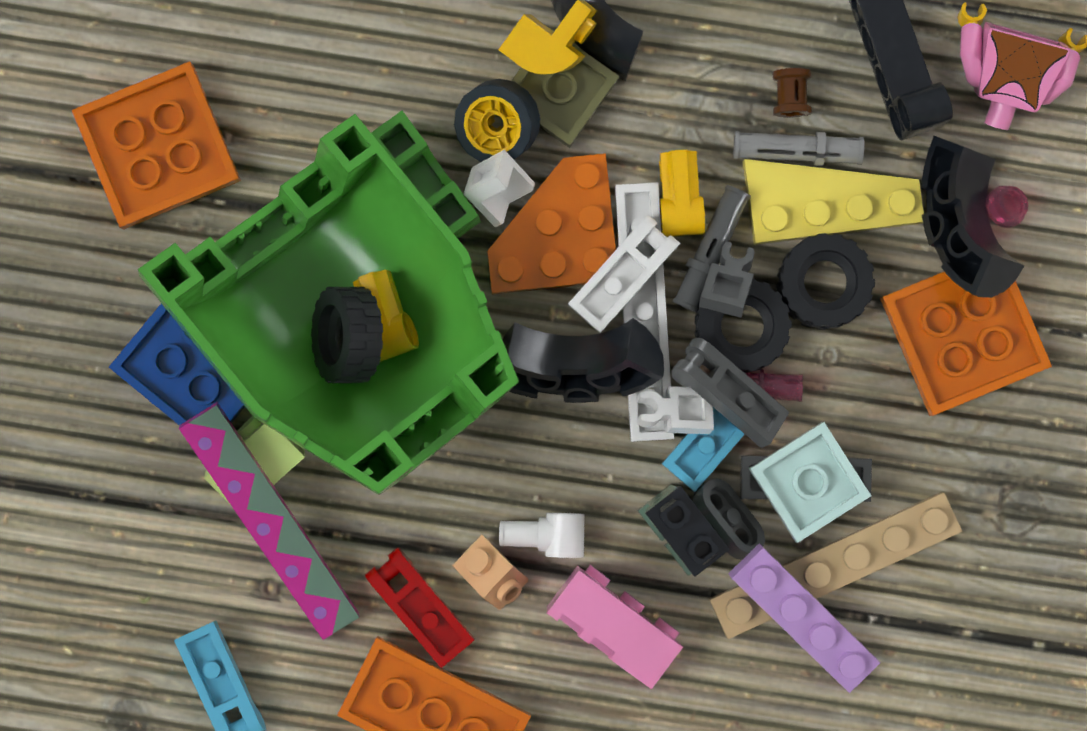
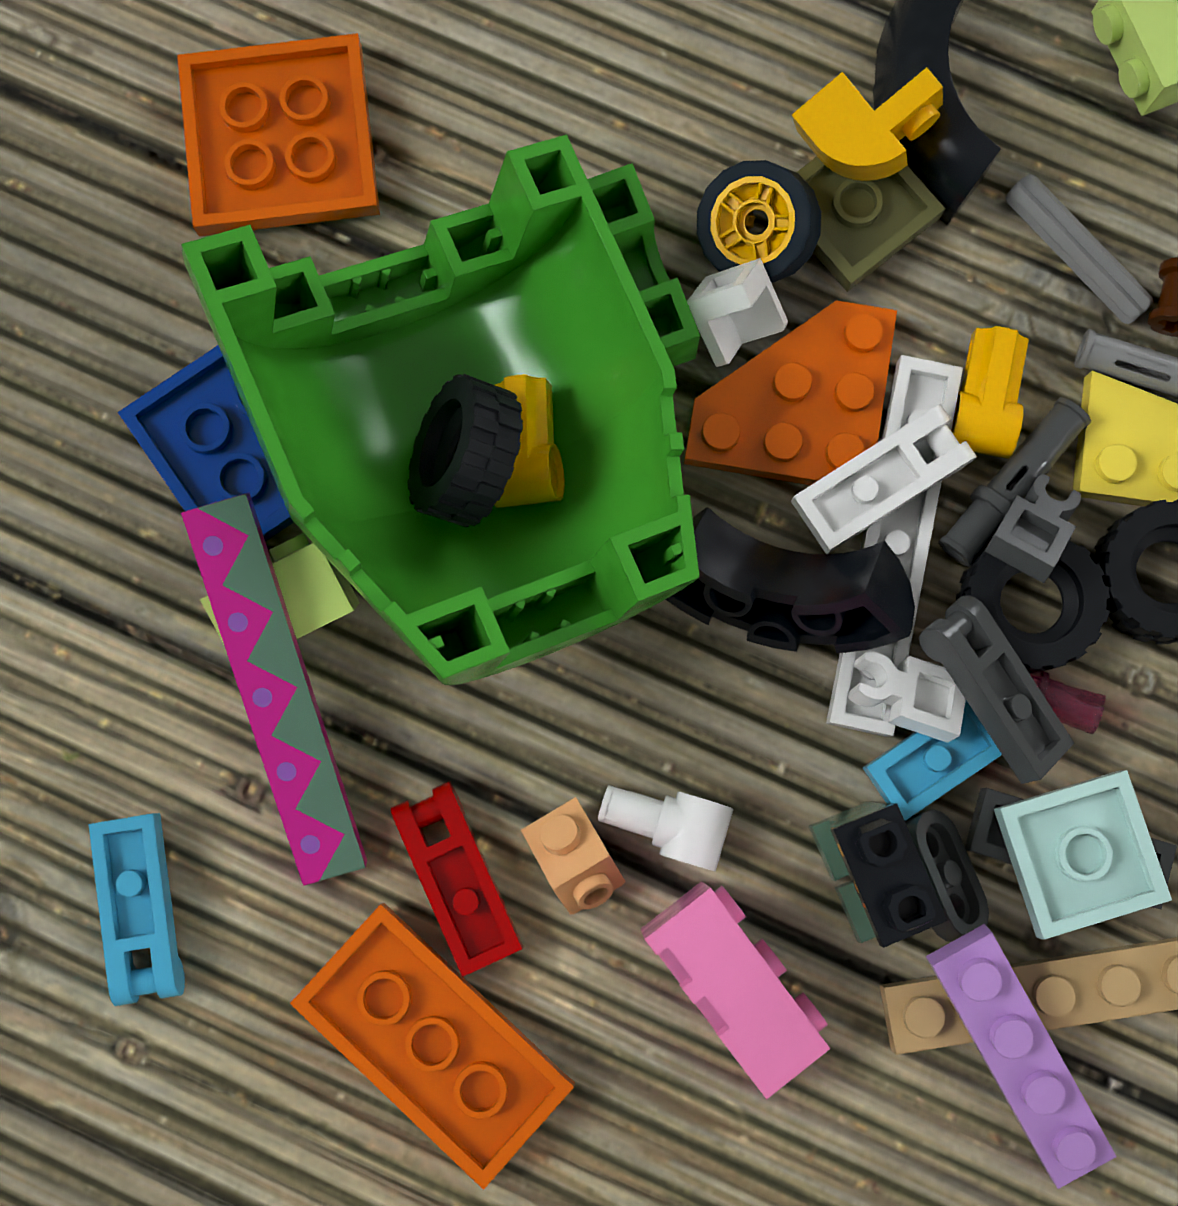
camera: 15 degrees right, 5 degrees down
(716, 76) = (1079, 249): none -> light grey axle

